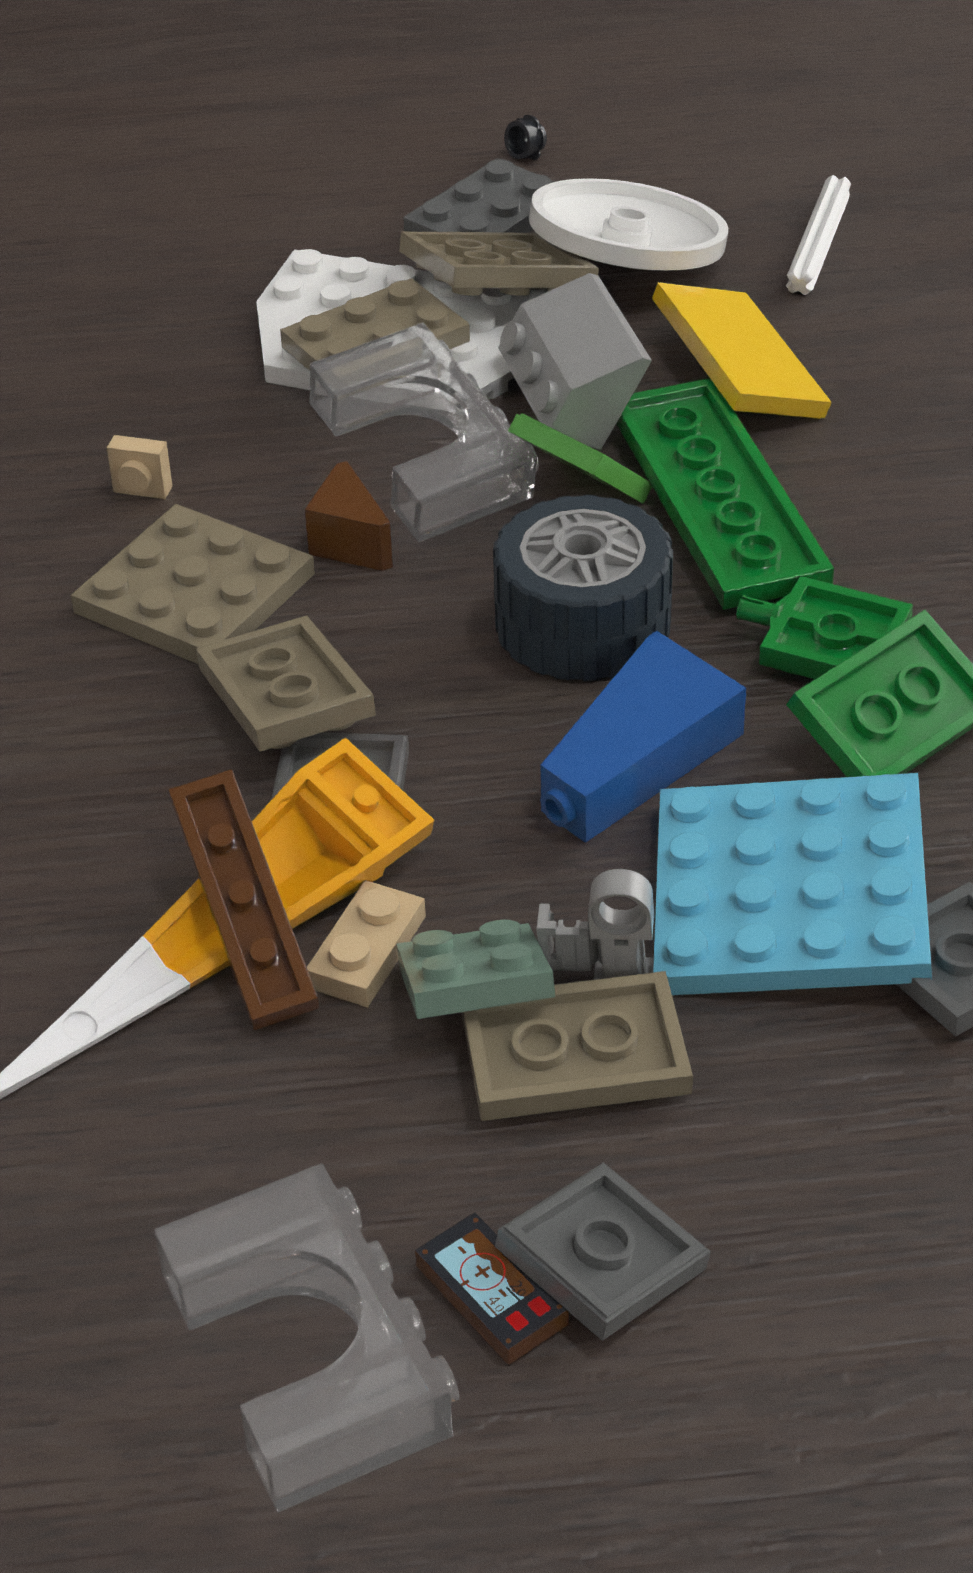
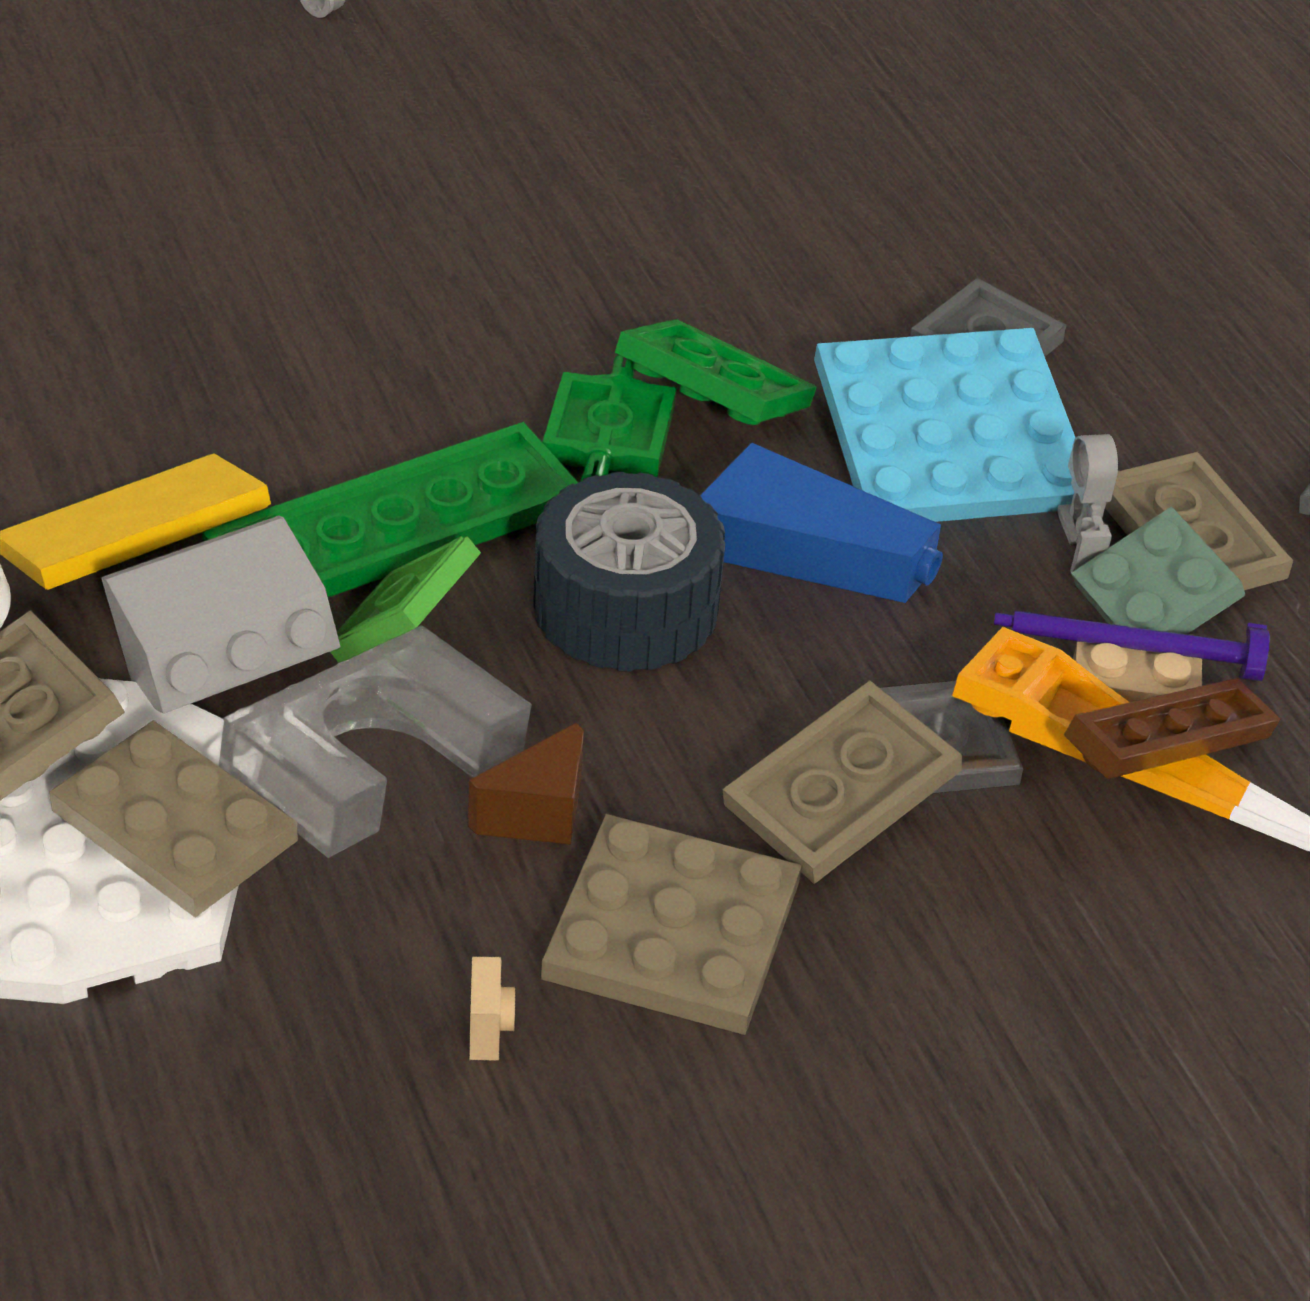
camera: 110 degrees left, 0 degrees up
(339, 1010) = (1251, 655): none -> dark purple piece

